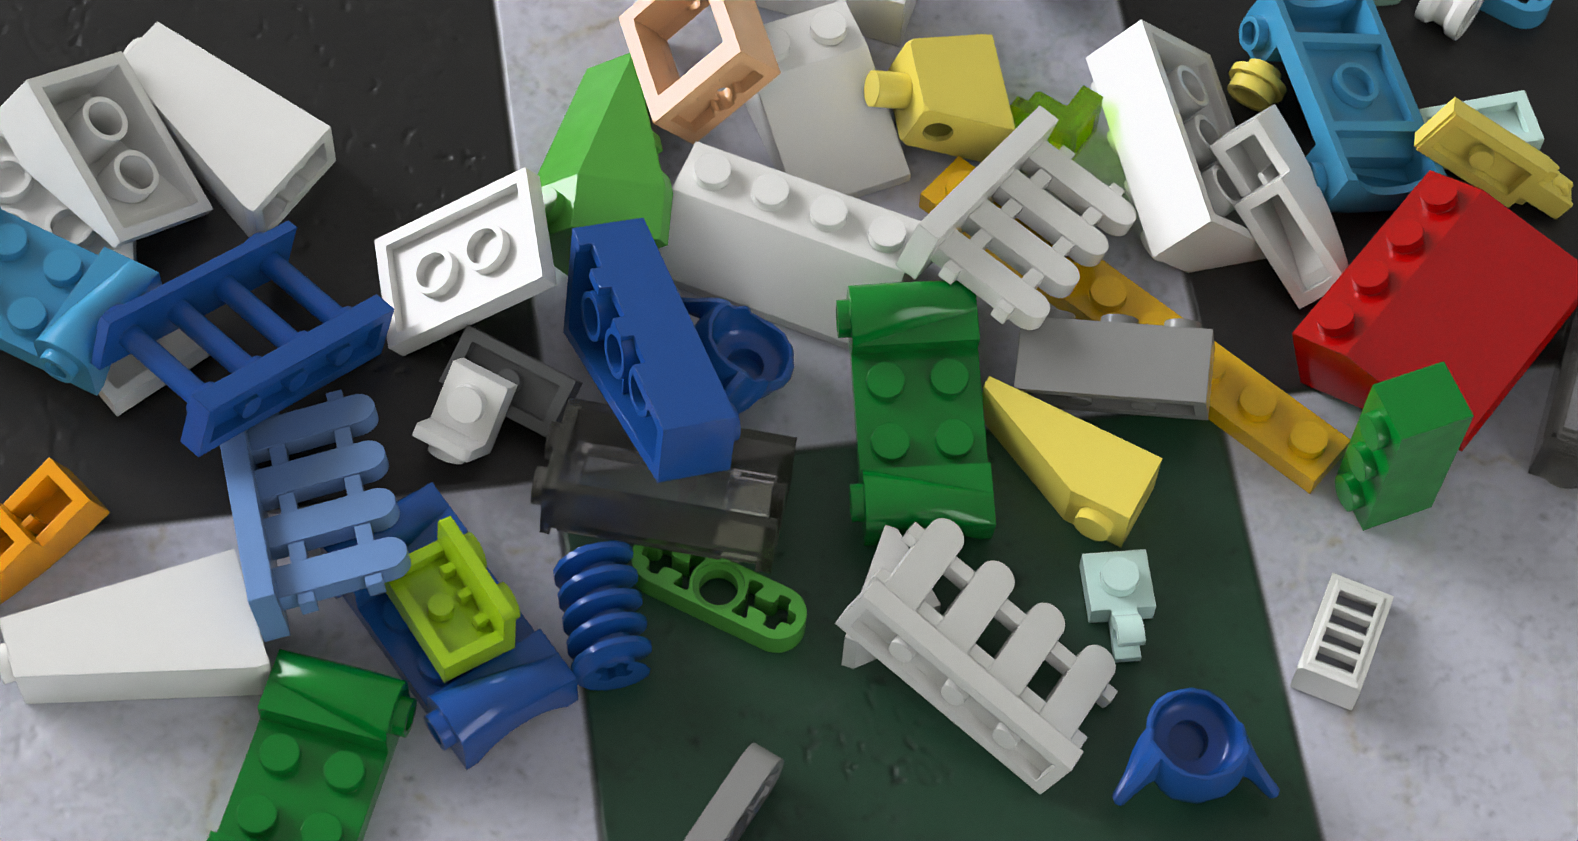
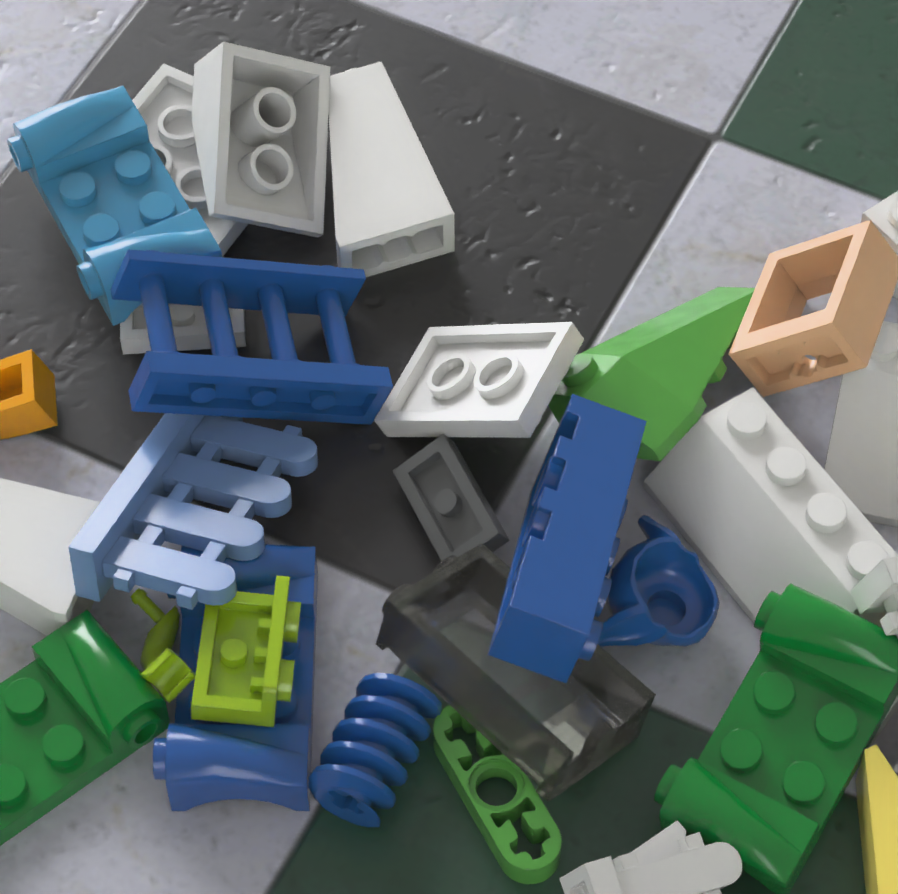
camera: 40 degrees right, 5 degrees down
(396, 657) = (161, 664): none -> lime piece
(466, 413) = (392, 510): white bracket -> none

